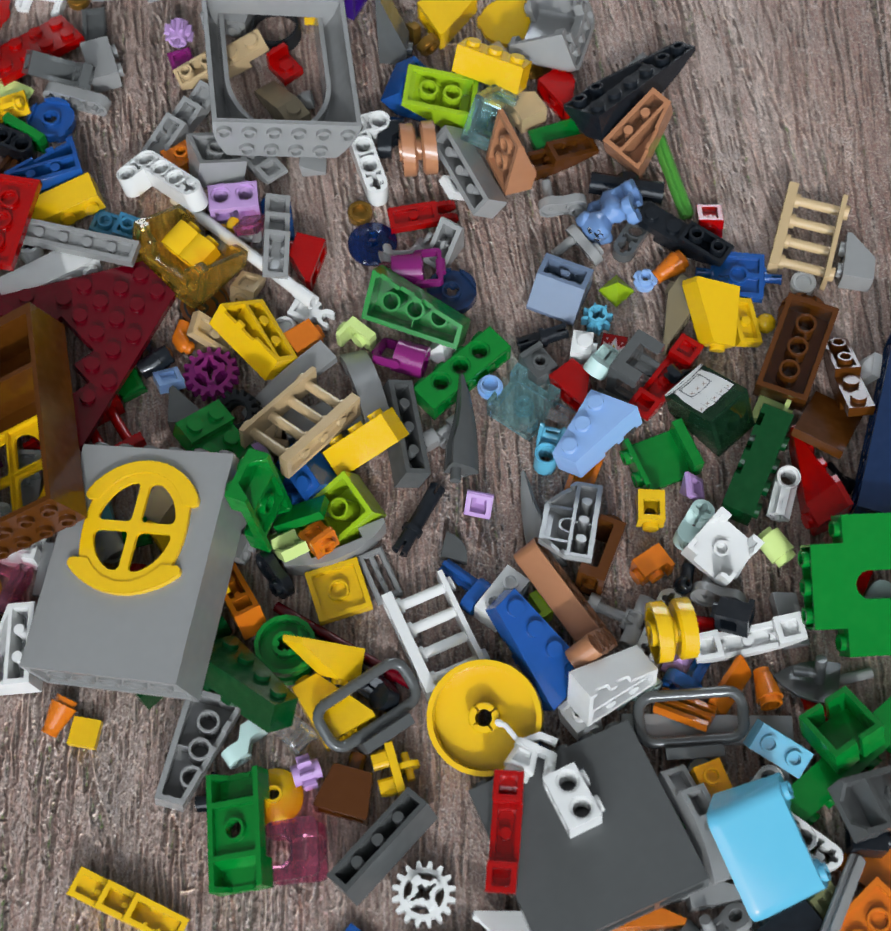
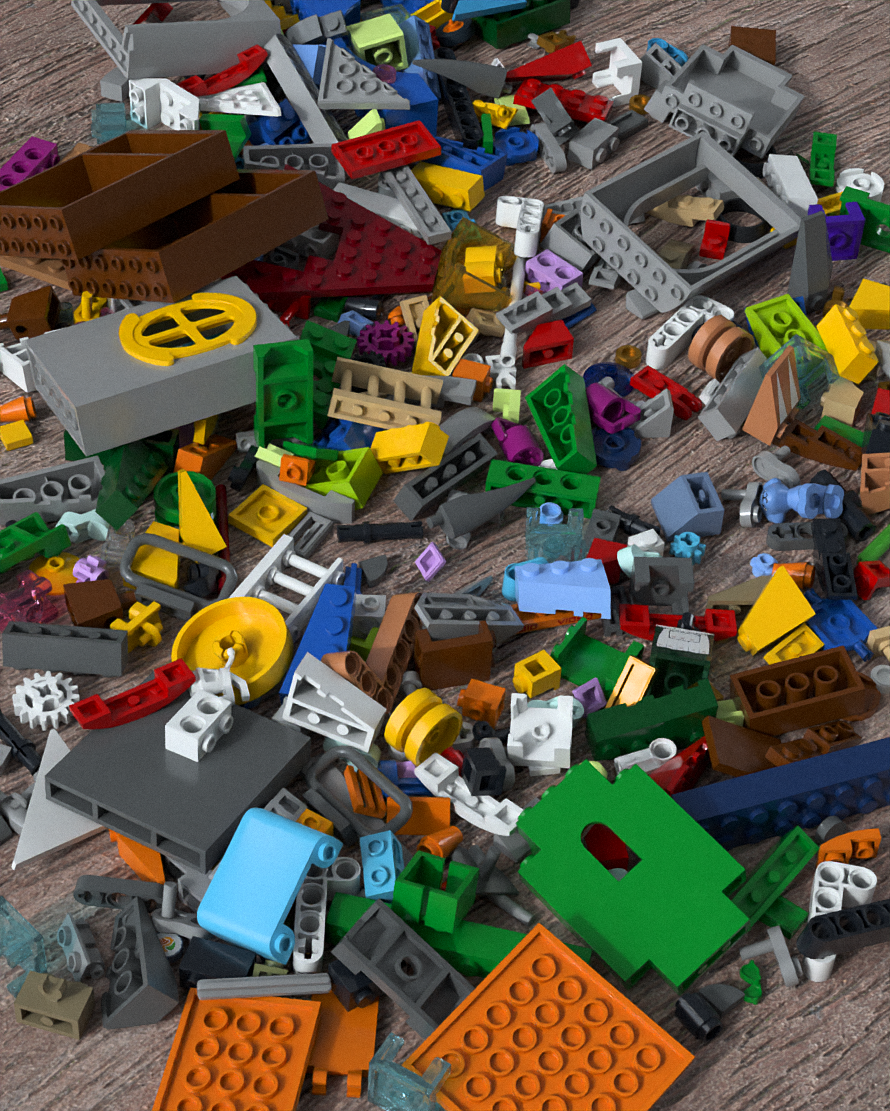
camera: 50 degrees right, 20 degrees down
(616, 290) = (734, 553): lime slope -> none
(715, 453) = (633, 682): none -> tile

